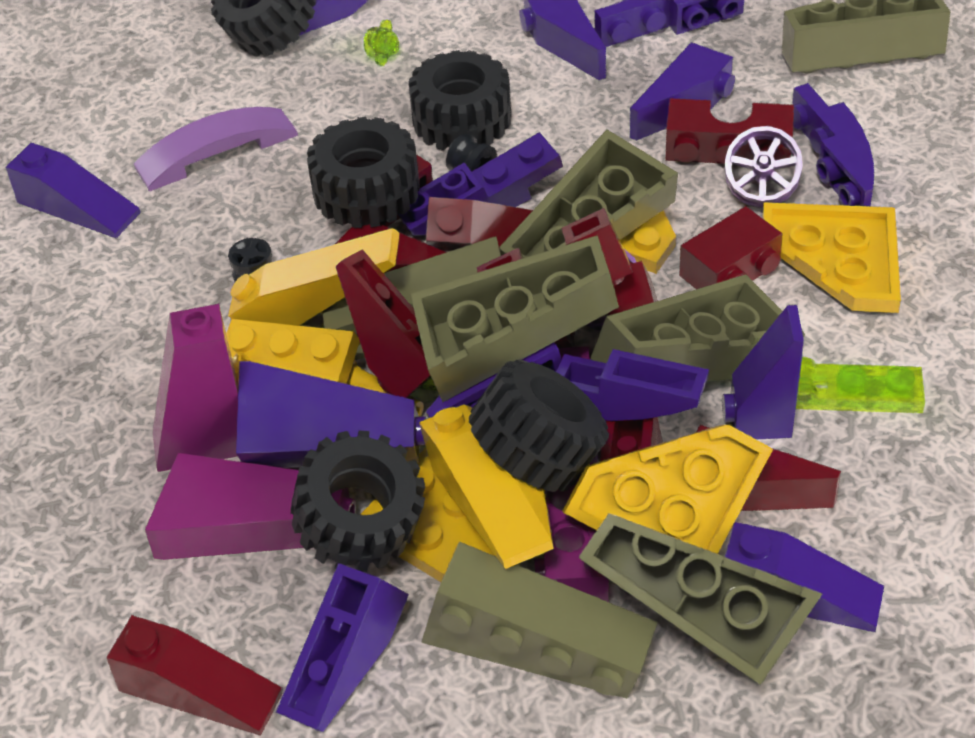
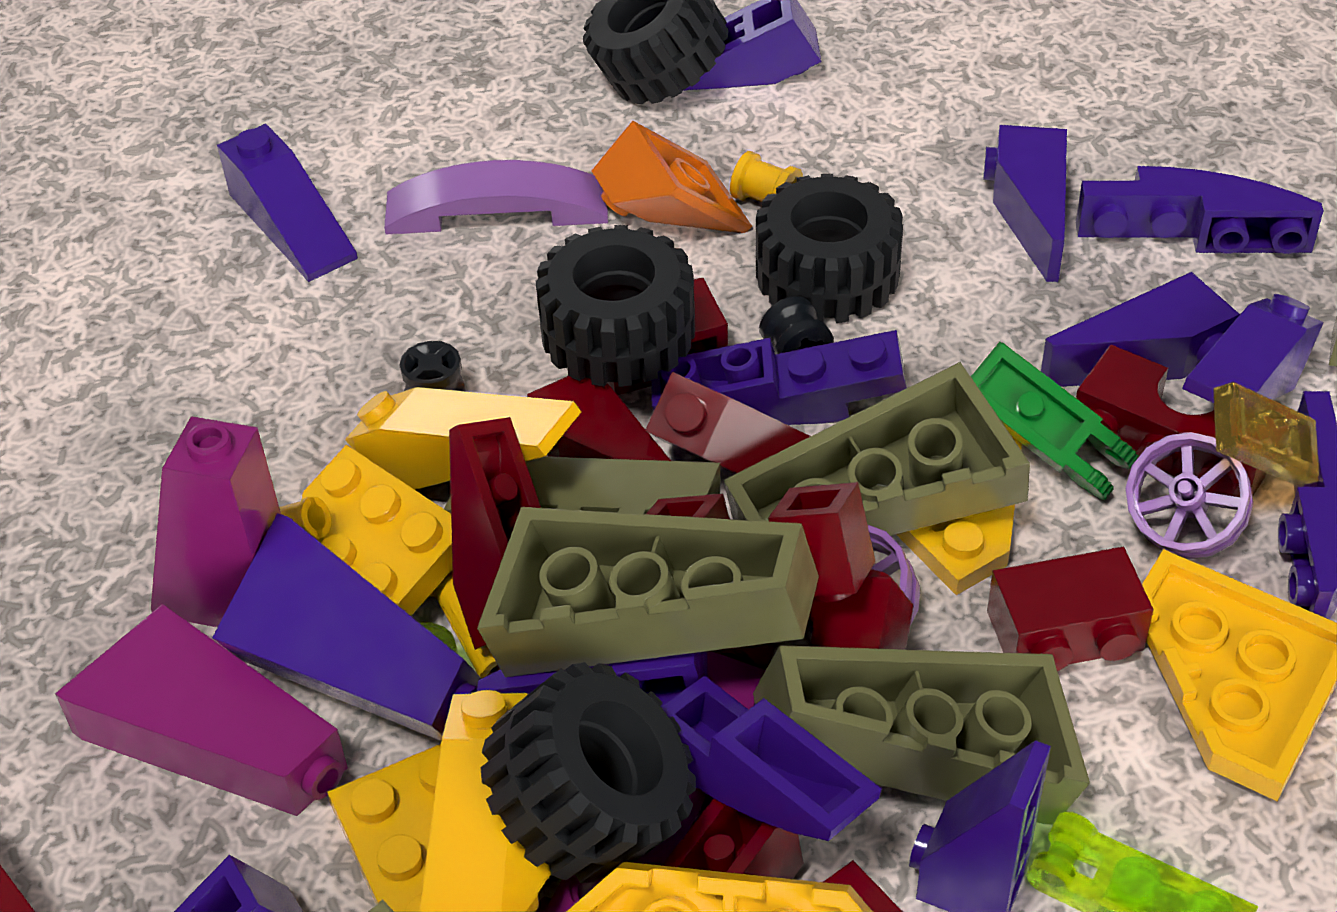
camera: 25 degrees right, 0 degrees up
(325, 97) = (665, 184): none -> orange slope
(362, 465) = (298, 716): black tyre -> none
(381, 42) = (772, 128): clear neon green plate -> none
(390, 75) = (758, 179): none -> yellow bush
(669, 150) = (1049, 419): none -> green hinge
(758, 74) = (1259, 350): none -> dark purple slope
(793, 114) = (1265, 434): none -> clear yellow plate

